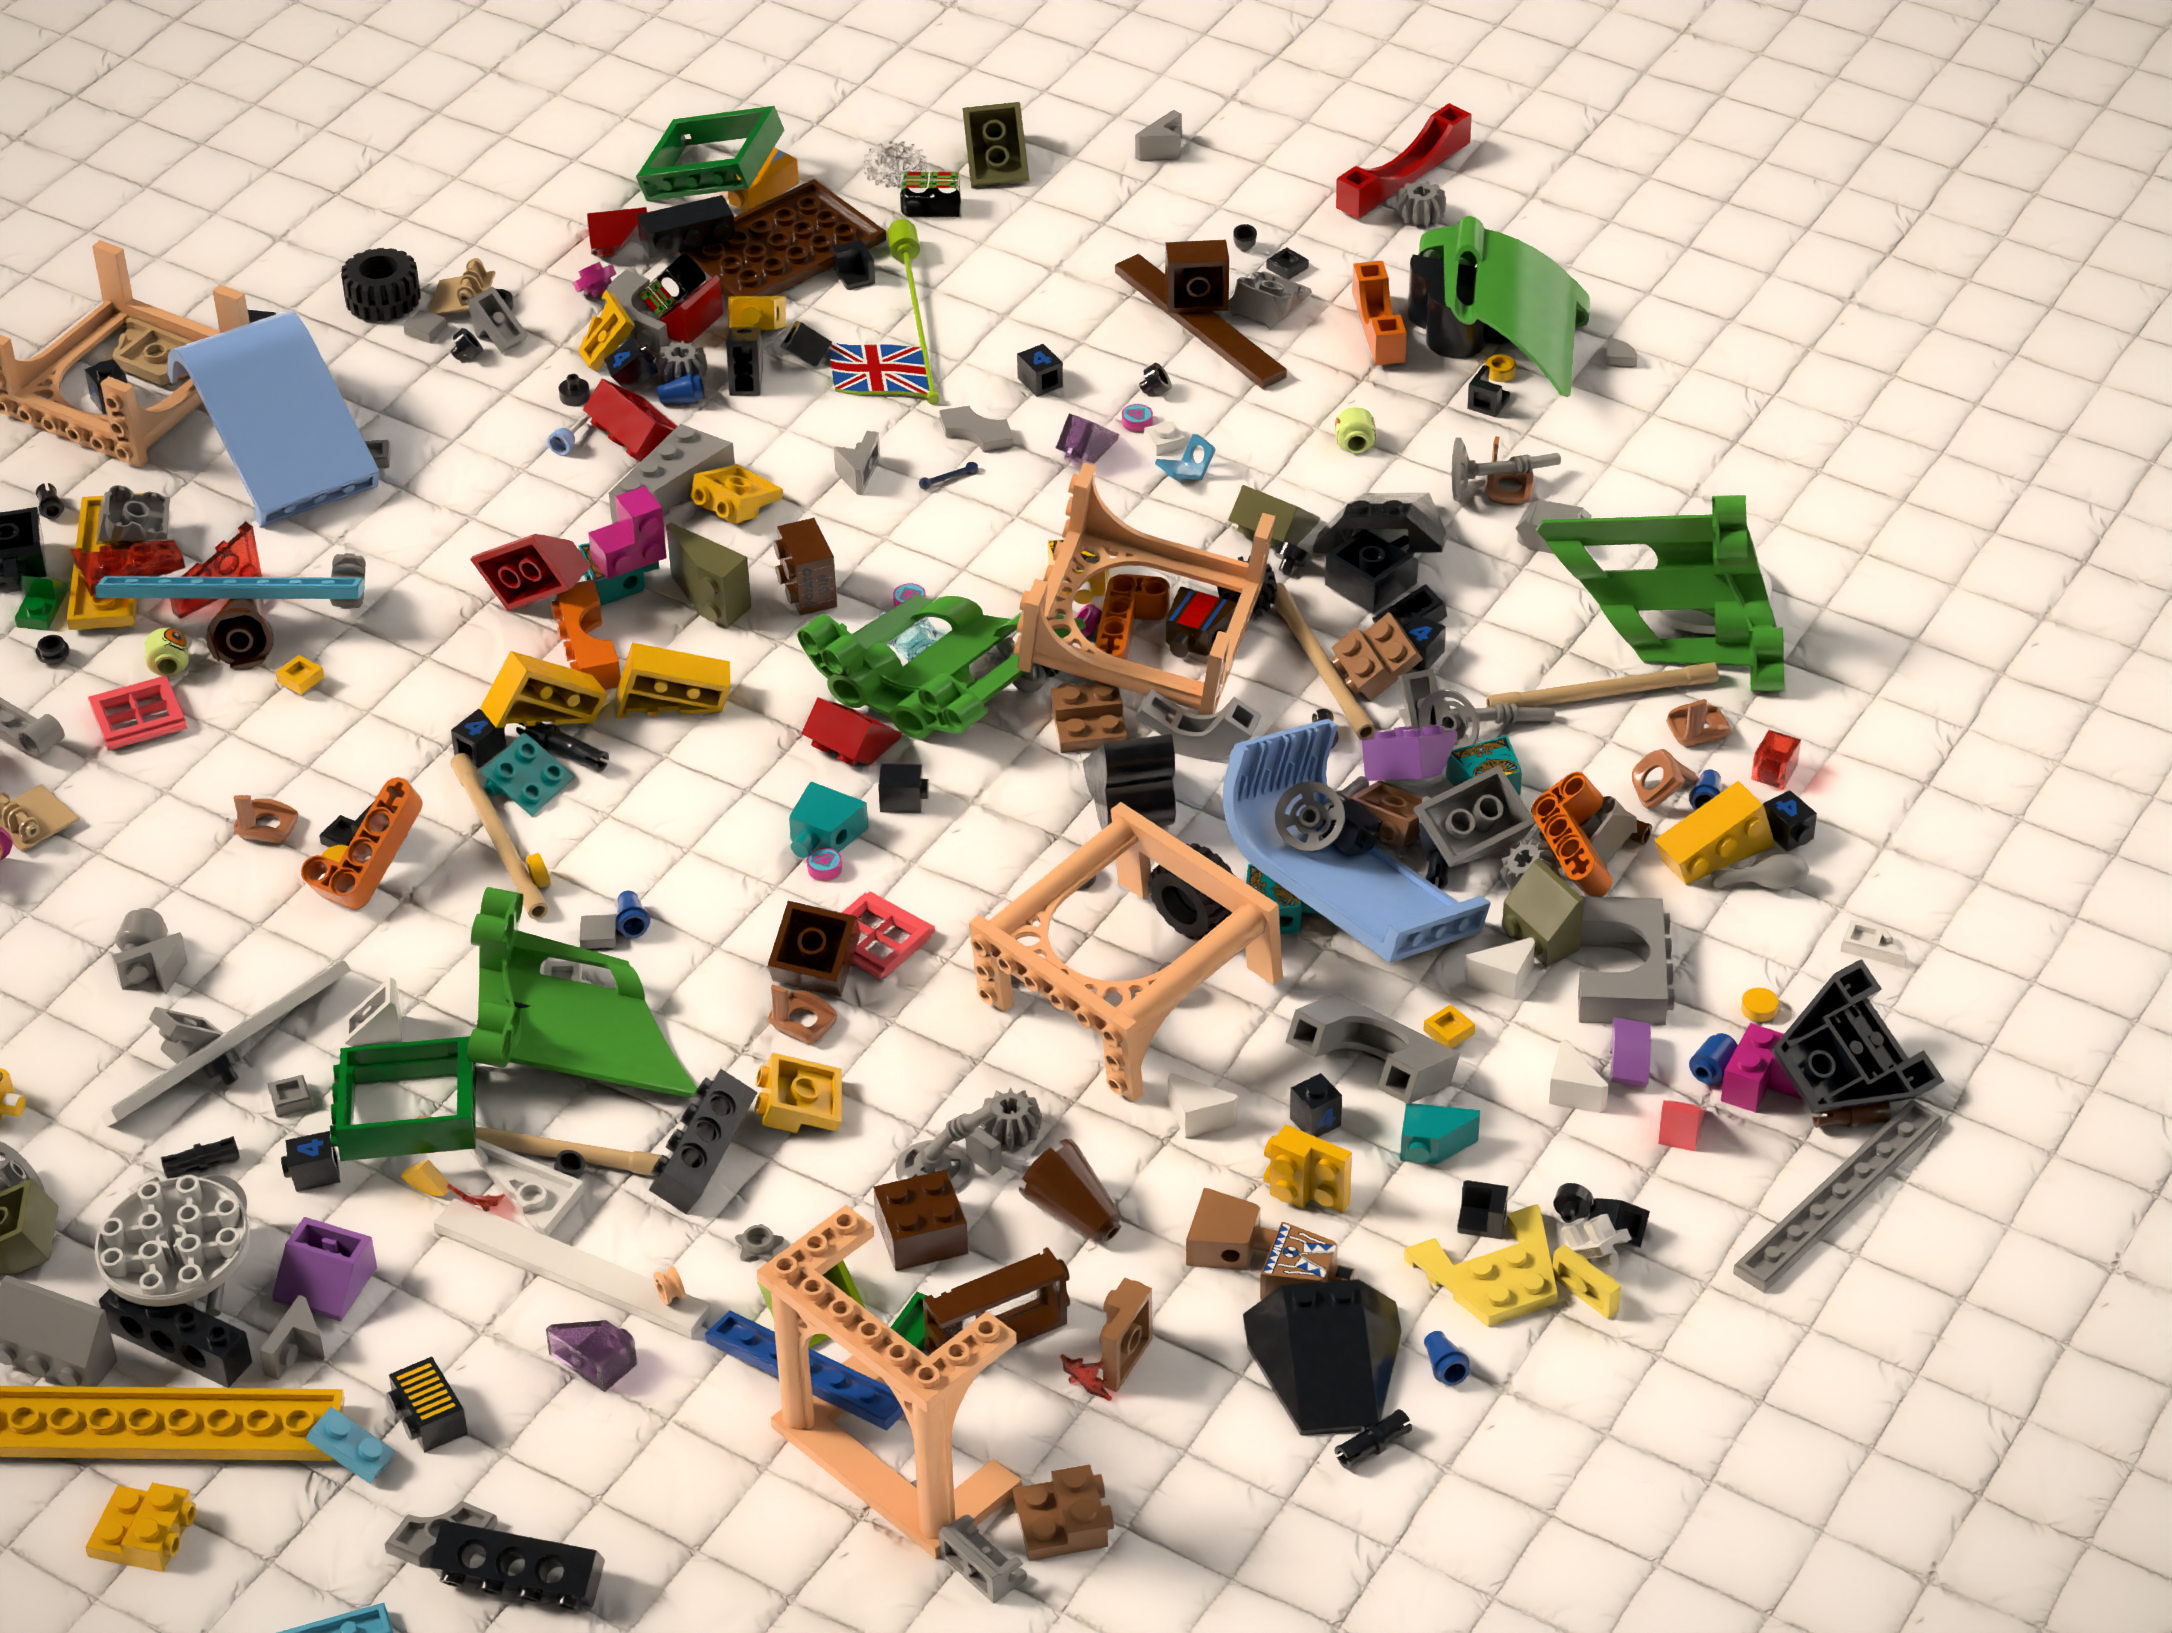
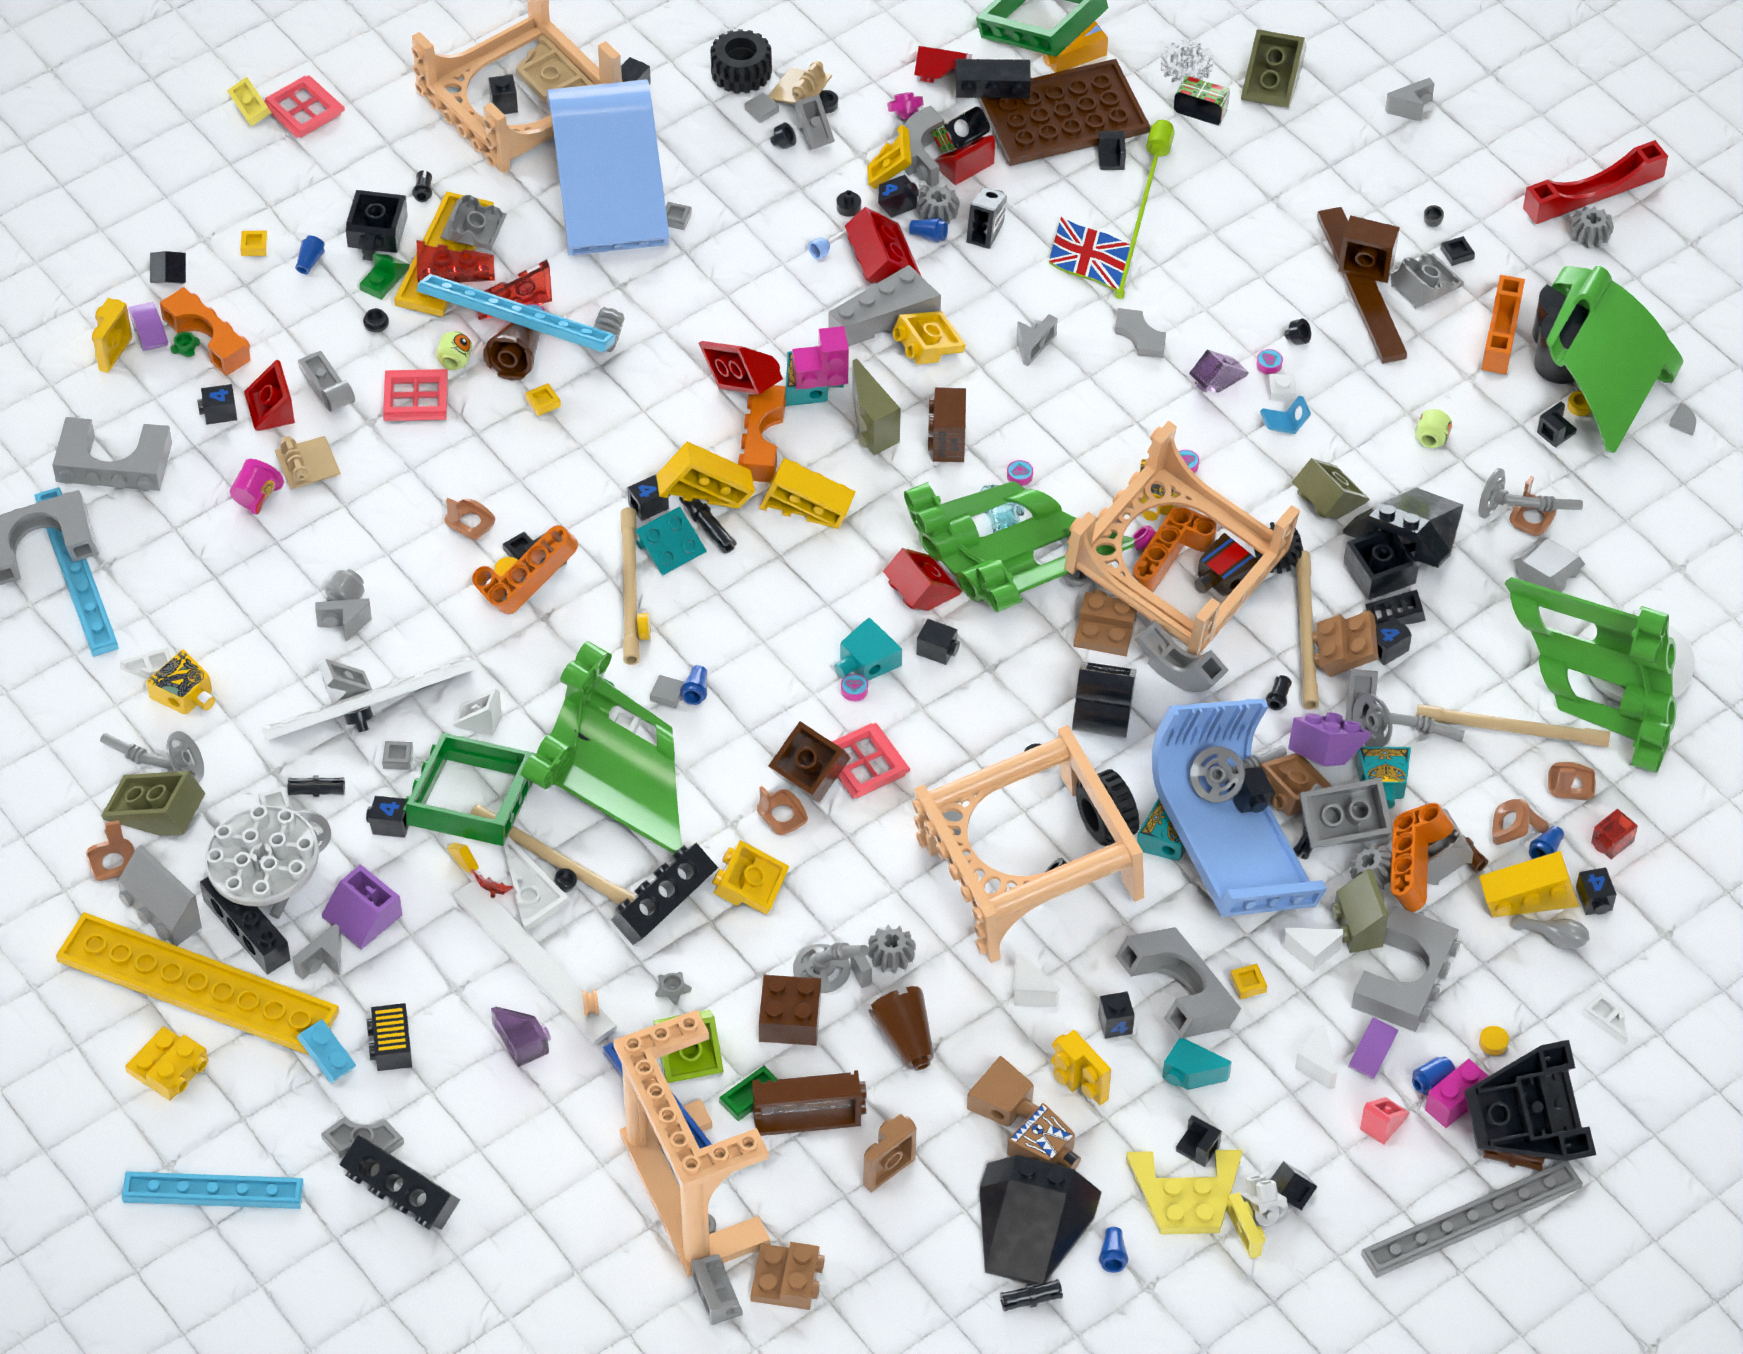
camera: 20 degrees right, 10 degrees up
(757, 312) = (1011, 175): yellow torso -> none
(806, 343) = (1042, 214): black panel -> none
(971, 468) = (1120, 368): dark blue hinge -> none
(1040, 370) = (1211, 295): black brick -> none
(1086, 1375) = (851, 1174): clear red piece -> none
(1290, 556) = (1326, 529): black tile -> none
(1573, 1202) = (1266, 1158): black tile -> none

